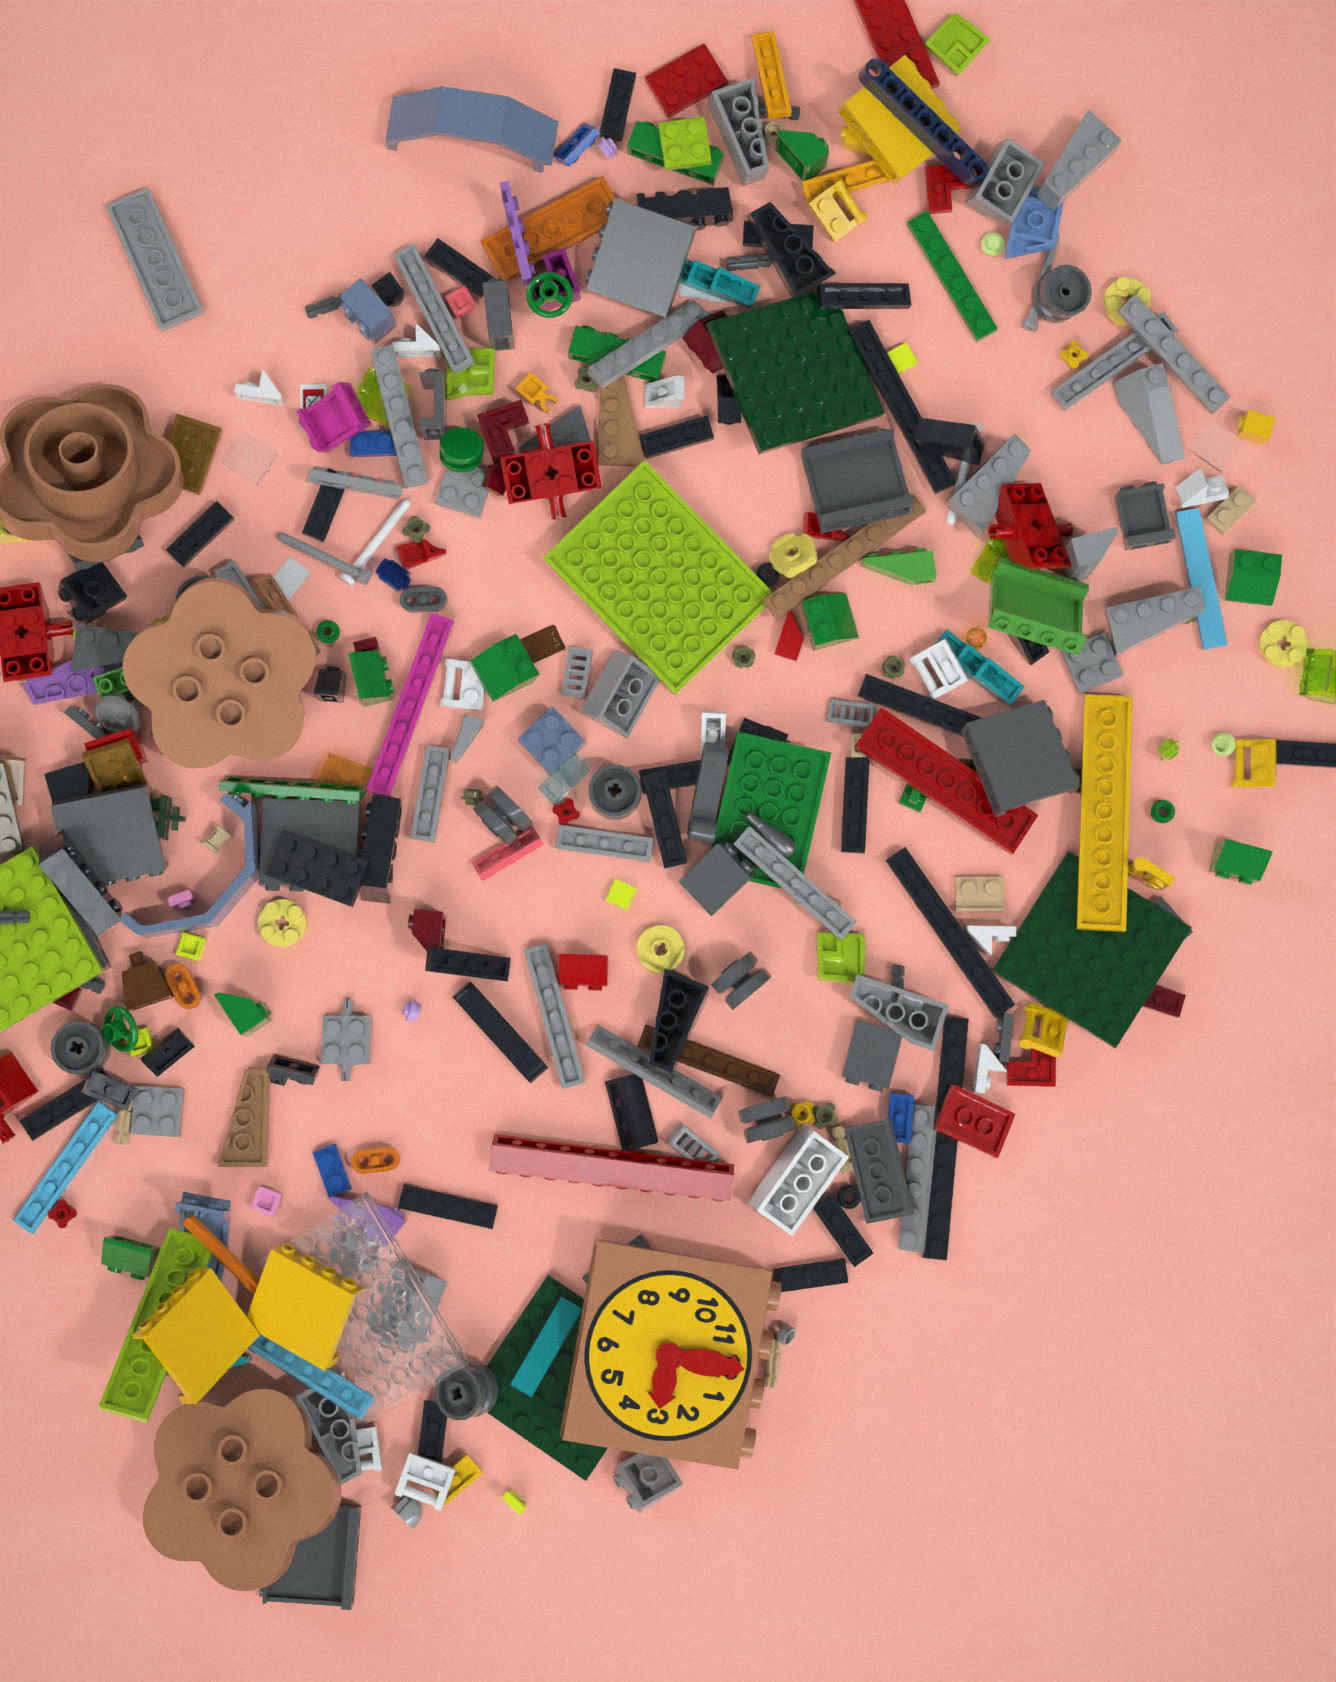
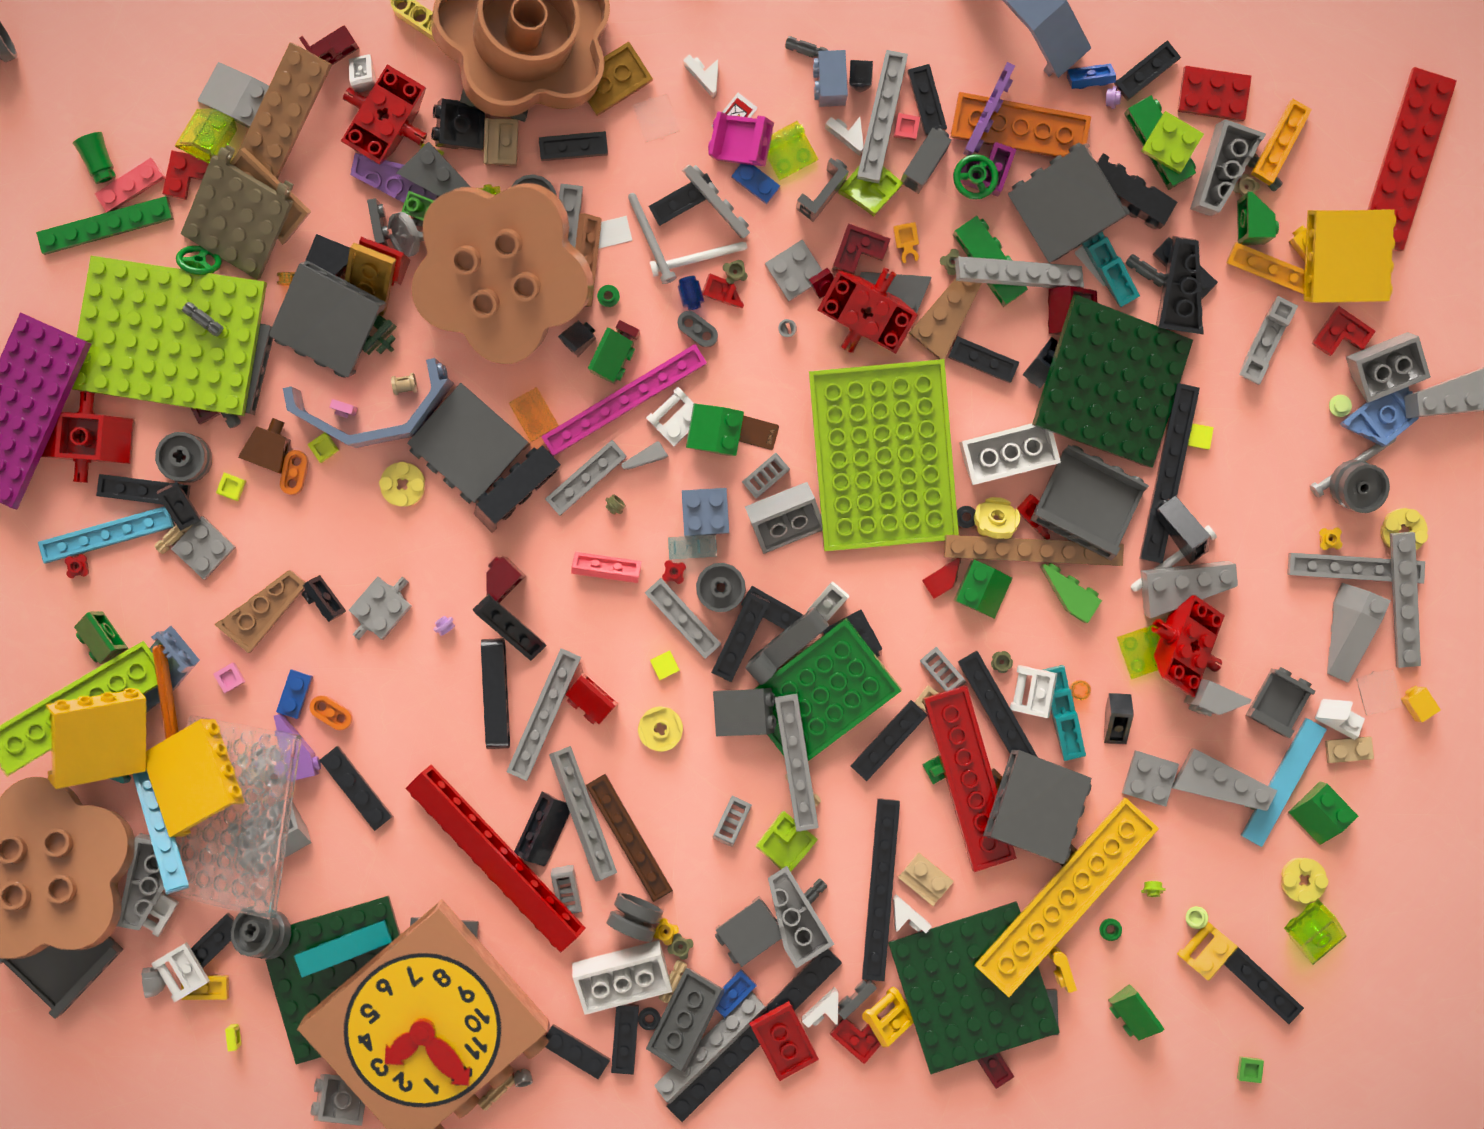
camera: 40 degrees right, 5 degrees up
(47, 831) = (285, 278): none -> clear yellow bush
(79, 882) = (276, 336): wedge -> none
(117, 1029) = (220, 465): green piece -> none
(137, 578) = (501, 142): none -> tan plate
(167, 1052) = (244, 511): black plate -> none
(245, 1013) = (321, 528): green slope -> none
(283, 788) = (488, 392): green plate -> none
(318, 868) = (457, 468): black plate -> none
(399, 416) = (790, 177): light grey plate -> none
(461, 449) = (816, 239): green head -> none
(493, 543) = (783, 330): none -> light grey hinge
(500, 818) = (623, 538): dark grey wheel -> none
(665, 393) = (1001, 319): white slope -> none
(676, 1017) = (631, 788): black wedge -> none
(740, 979) = (699, 802): dark grey wheel -> none
(748, 661) = (891, 564): olive plate -> none
(758, 493) = (1008, 453): none -> white slope
(772, 835) = (809, 718): flat silver piece -> none
(785, 997) = (722, 838): none -> light grey slope
(831, 215) = (1237, 284): yellow plate -> none
(864, 296) = (1210, 367): black plate -> none
(891, 239) = (1267, 339): none -> light grey slope
(911, 119) = (1357, 264): dark blue beam -> none
(952, 276) = (1289, 404): green plate -> none
(957, 43) = (1442, 230): lime plate -> none
(1037, 606) = (1143, 707): bright green panel -> none

